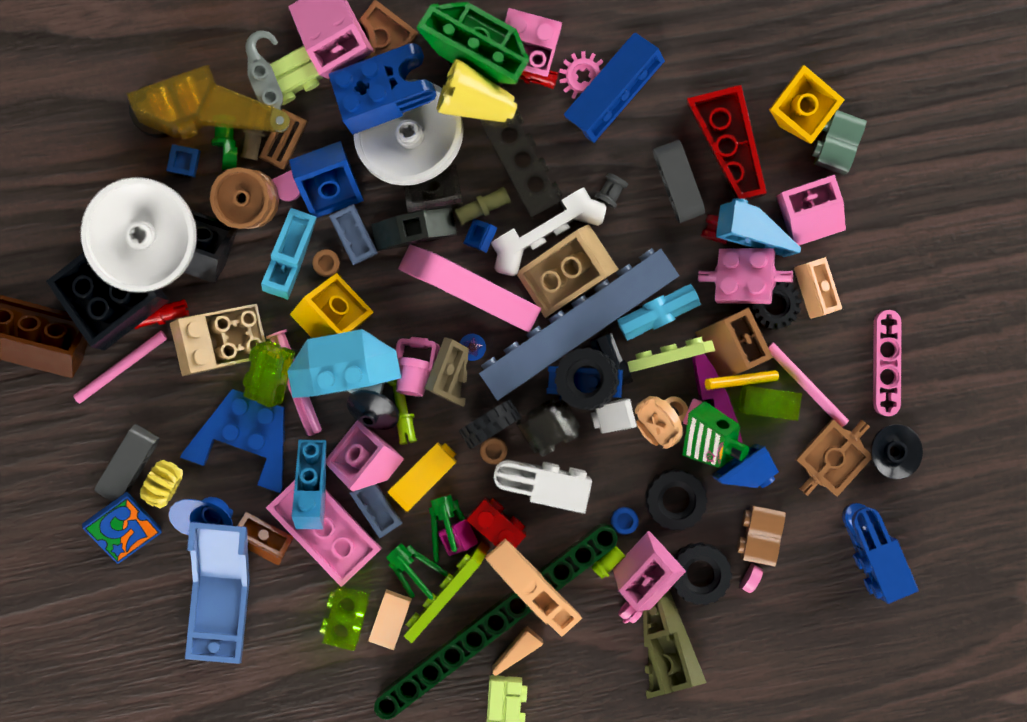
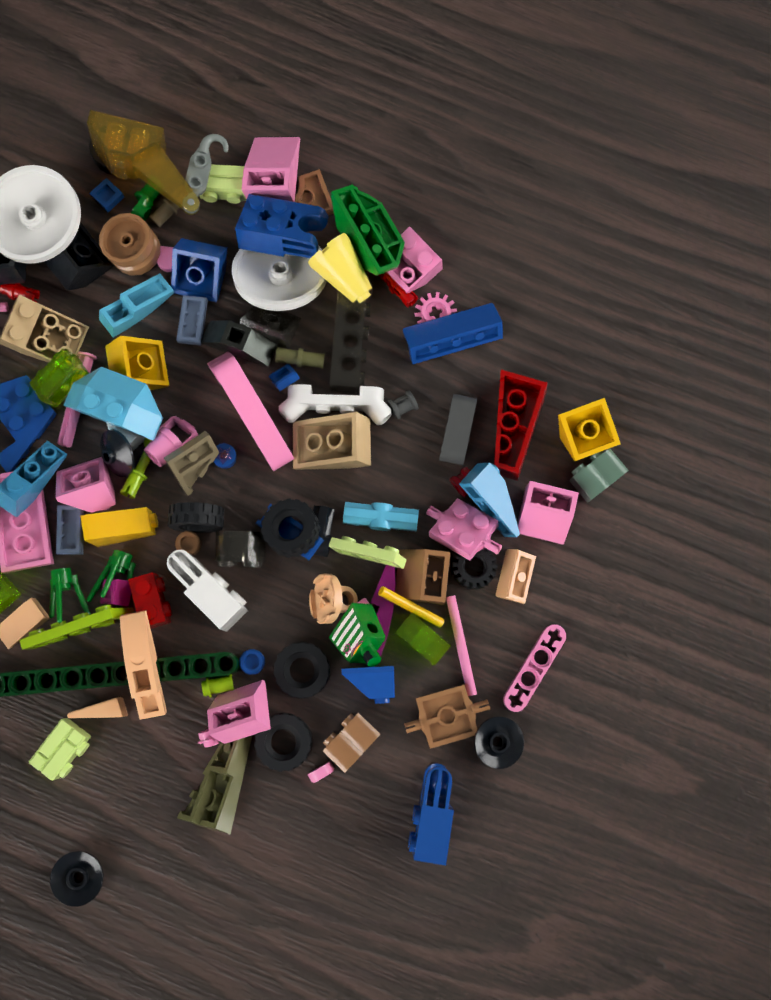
camera: 30 degrees right, 10 degrees down
(292, 146) = (190, 228): medium nougat tile -> none
(326, 263) = (159, 329): medium nougat tile -> none
(578, 324) = (314, 487): sand blue brick -> none
(614, 416) = (295, 572): white slope -> none

